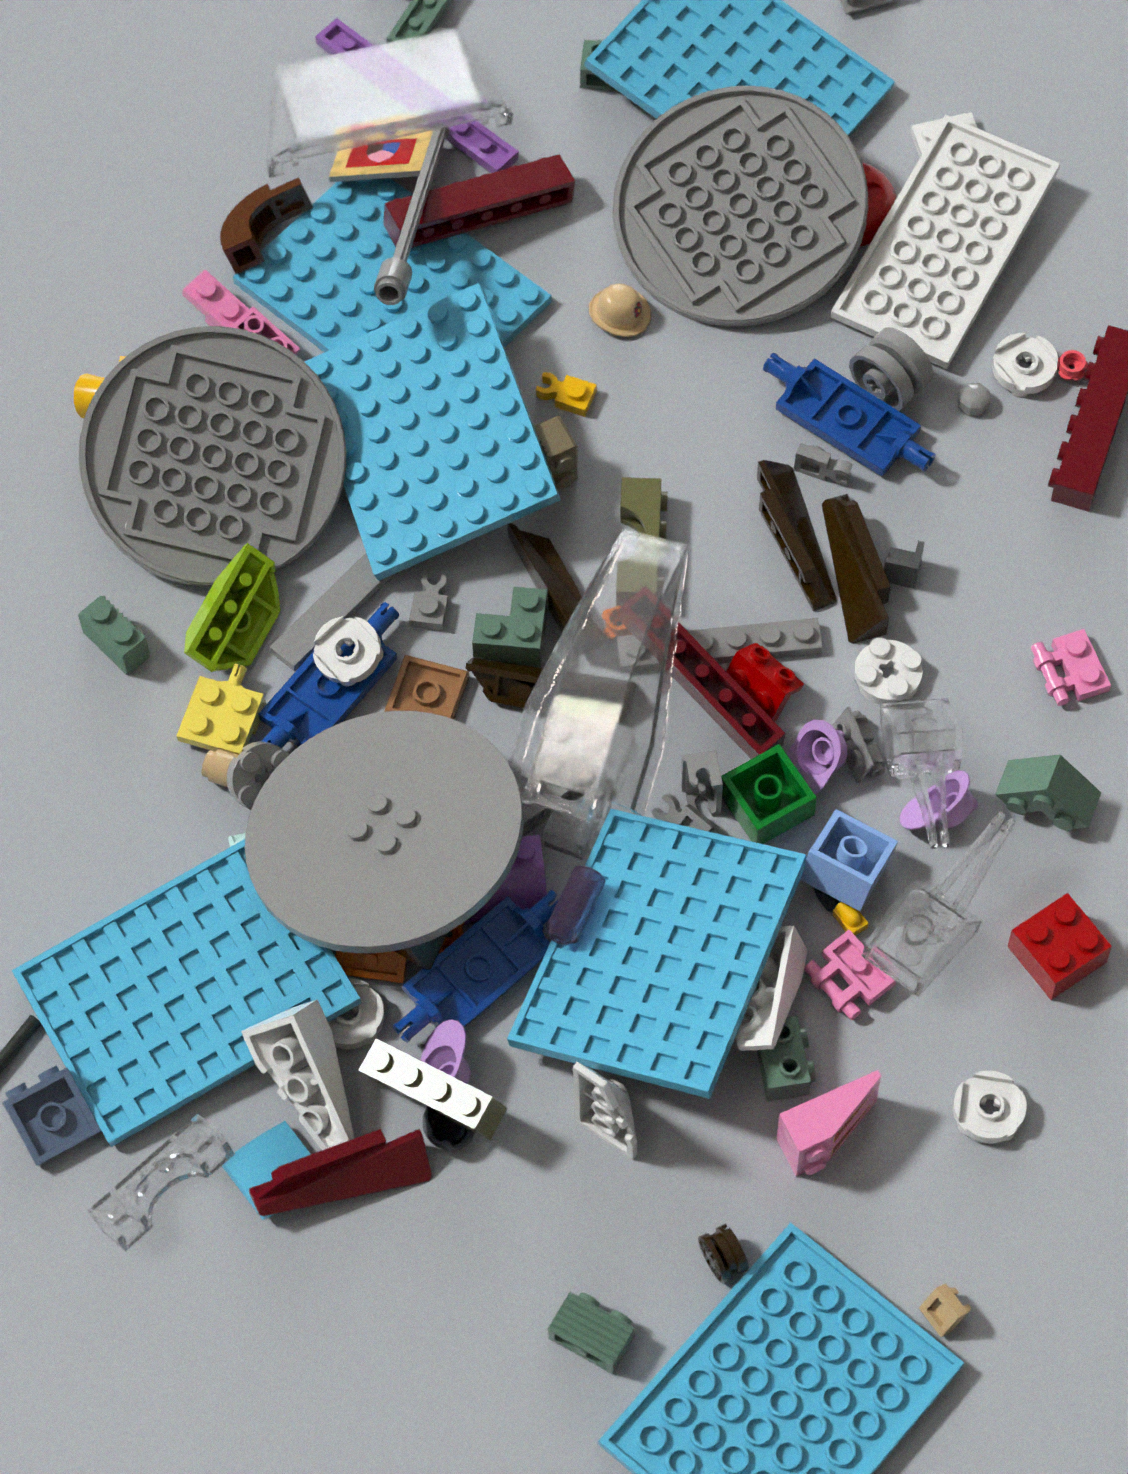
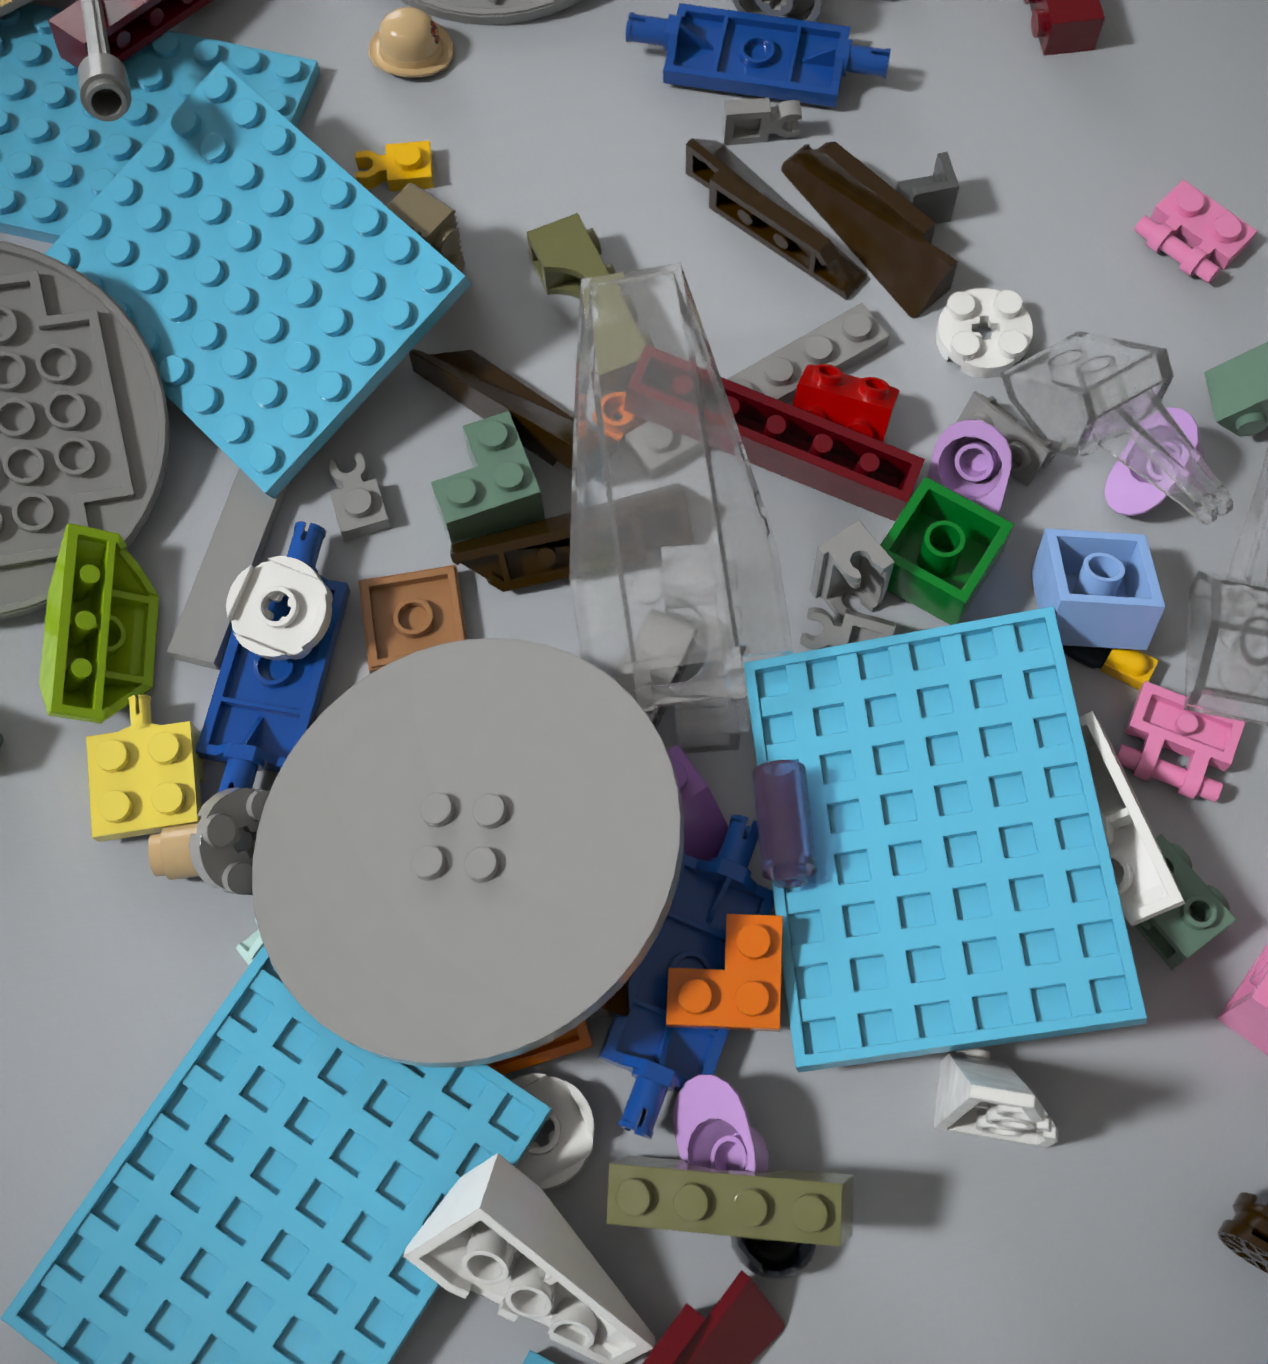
camera: 25 degrees left, 5 degrees up
(500, 987) = (742, 994): none -> orange plate

